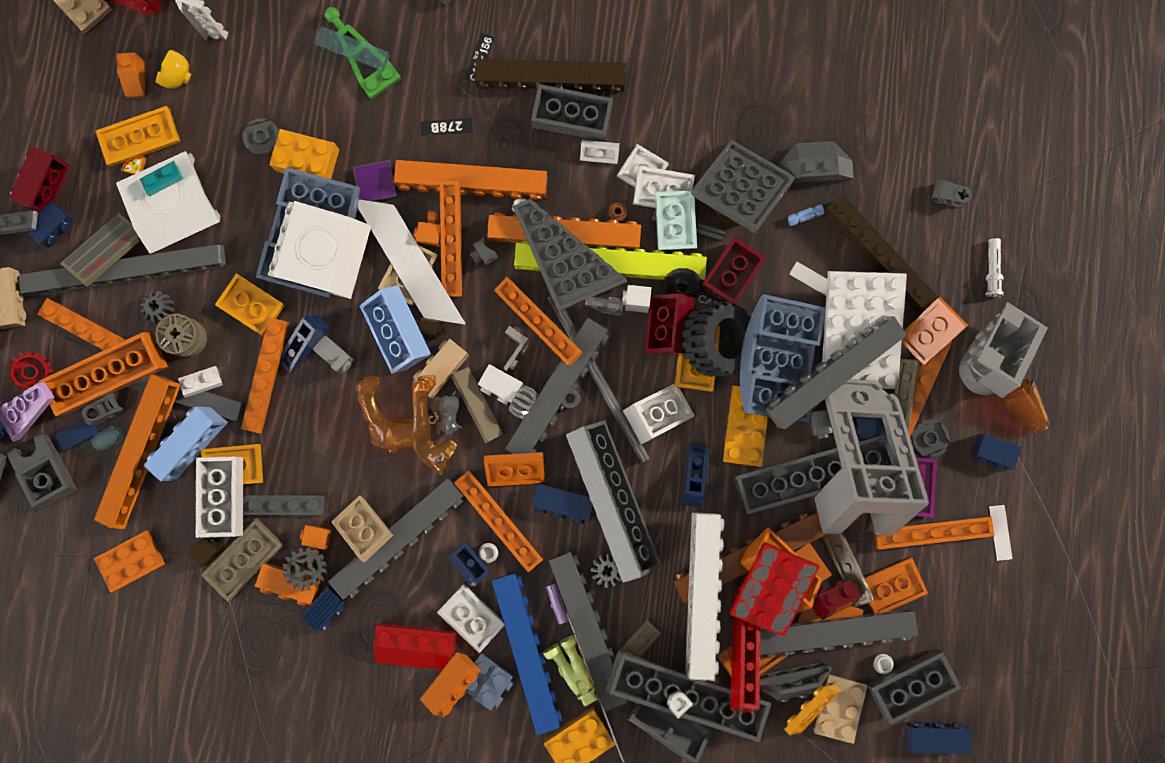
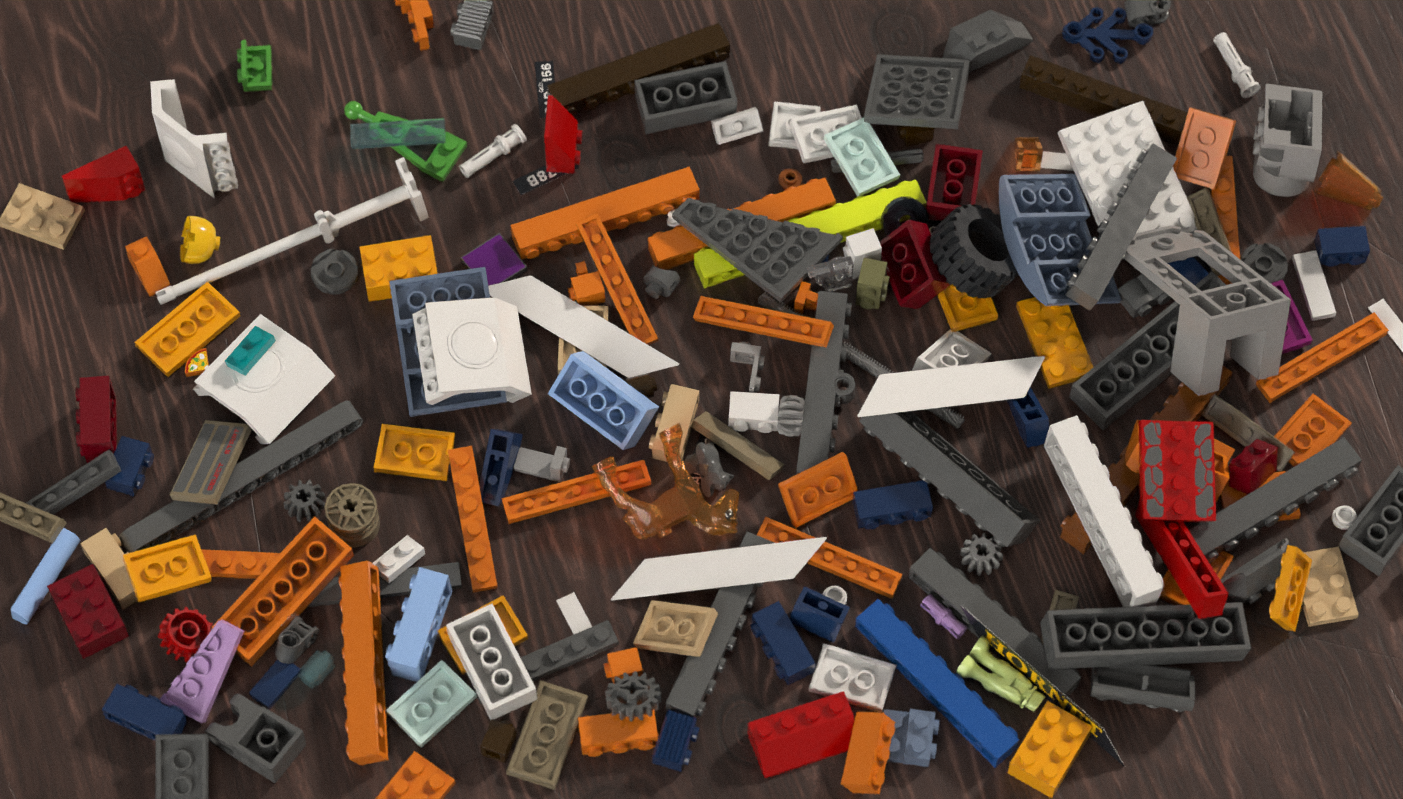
camera: 30 degrees left, 20 degrees down
(33, 319) = (167, 568): none -> light orange plate
(170, 501) = (431, 703): none -> light aqua plate
(305, 478) = (574, 613): none -> white sticker
(333, 100) = (327, 226): none -> white piece
(343, 387) = (572, 493): none -> orange plate
(415, 497) = (719, 568): none -> white sticker
(424, 90) = (500, 146): none -> white pin
(433, 572) = (782, 643): none -> dark blue brick
(463, 105) = (561, 138): none -> red slope
(580, 312) = (805, 299): none -> orange tile
(632, 326) = (872, 284): none -> olive brick
(645, 438) = (951, 386): none -> white sticker
(678, 703) = (1138, 637): white tile -> none
(802, 269) = (1028, 153): none -> clear orange slope
(805, 215) = (1001, 97): light blue axle -> none
(908, 197) = (1104, 34): none -> dark blue plant
(958, 472) = (1314, 285): none -> white tile

